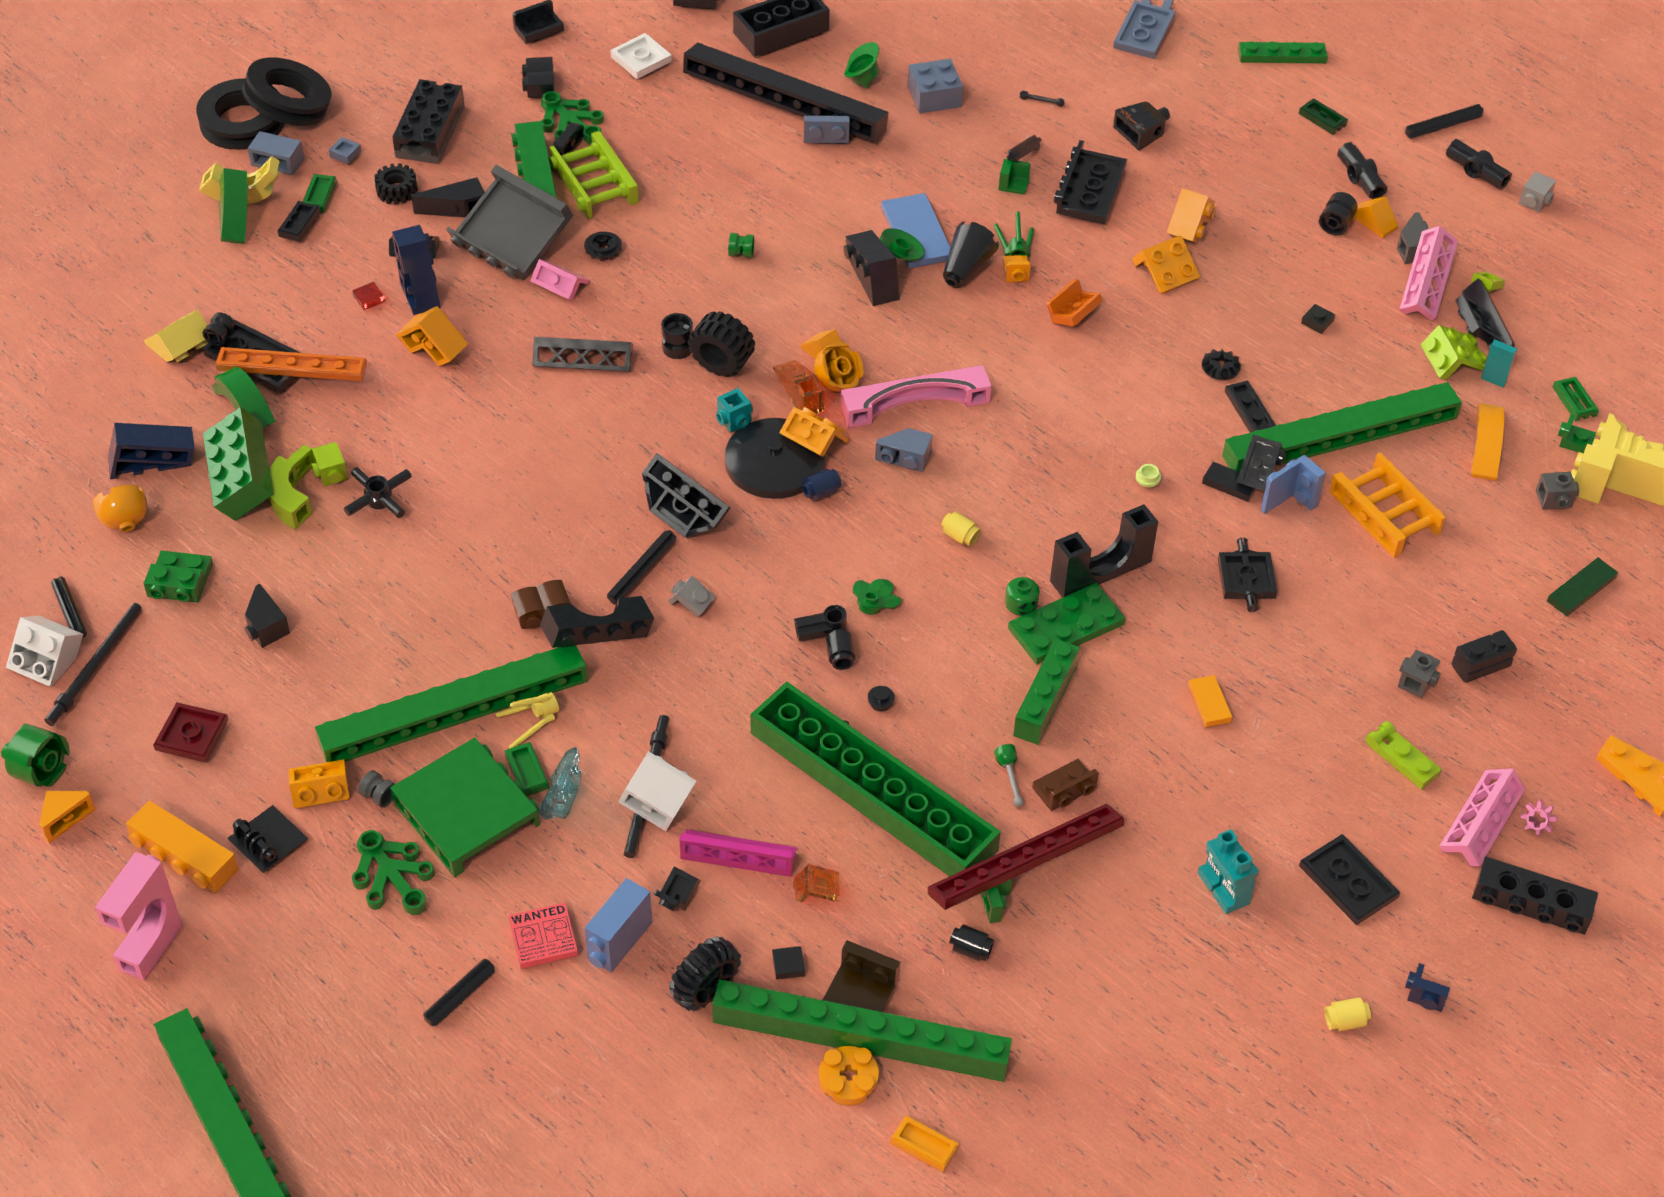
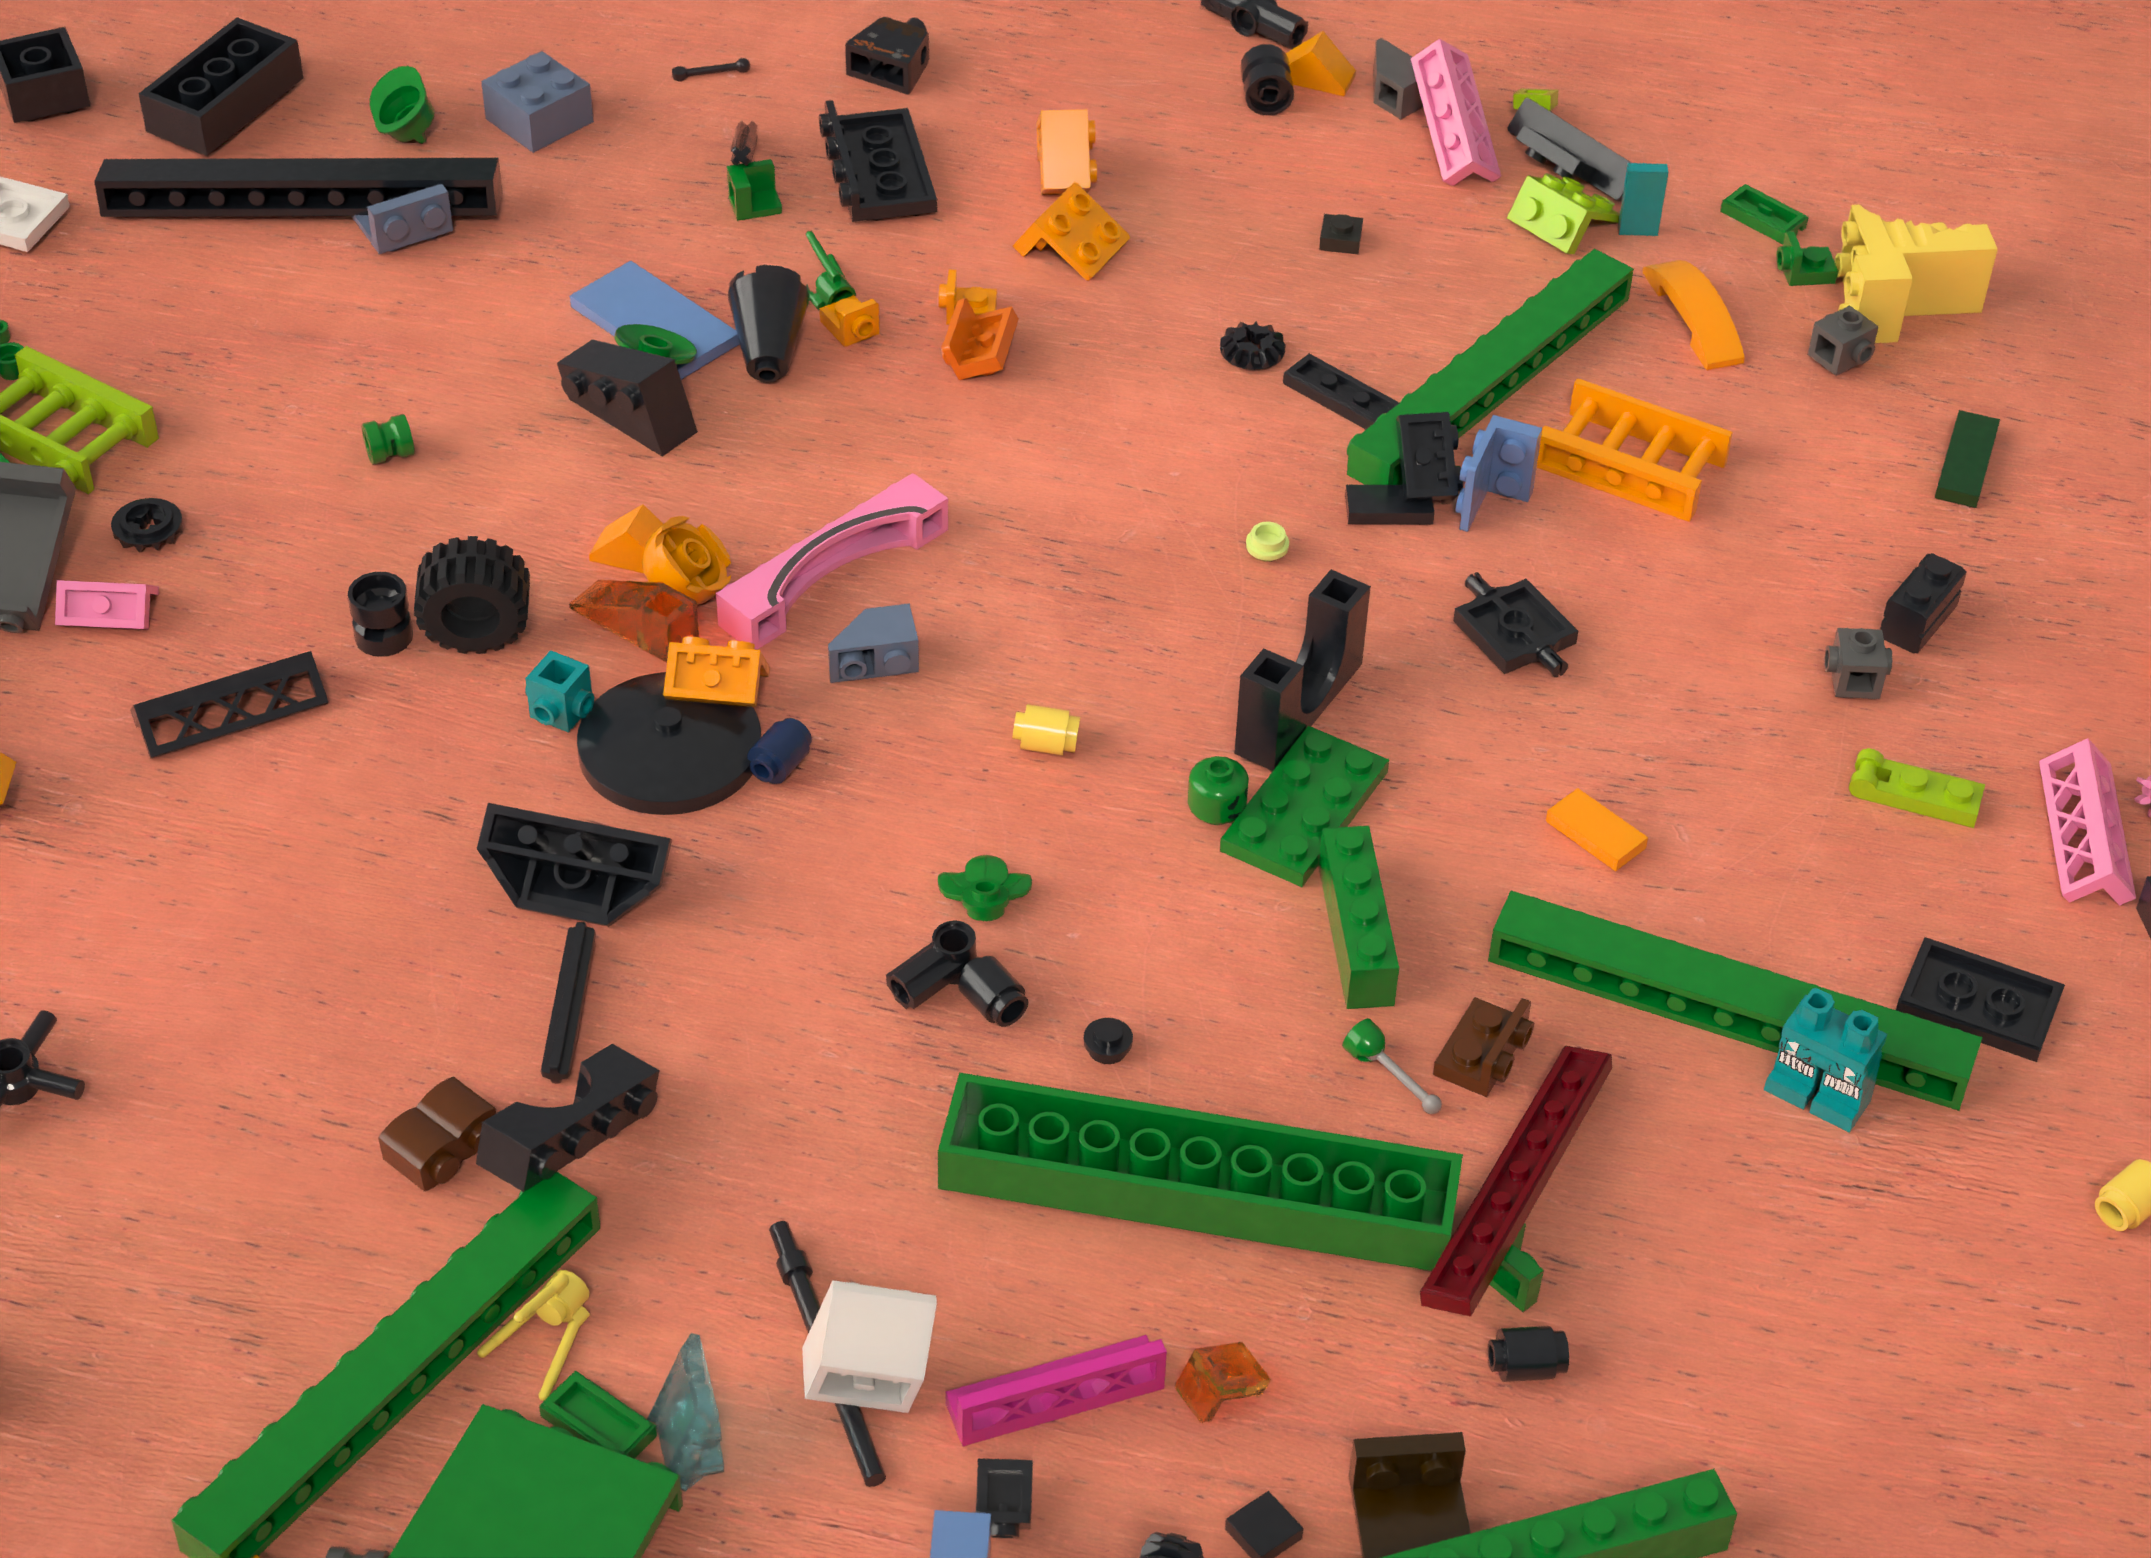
camera: 30 degrees left, 5 degrees down
(691, 595) = (688, 1010): light grey bracket -> none
(1087, 281) = (981, 299): none -> light orange bracket
(1208, 816) = (1715, 992): none -> green brick

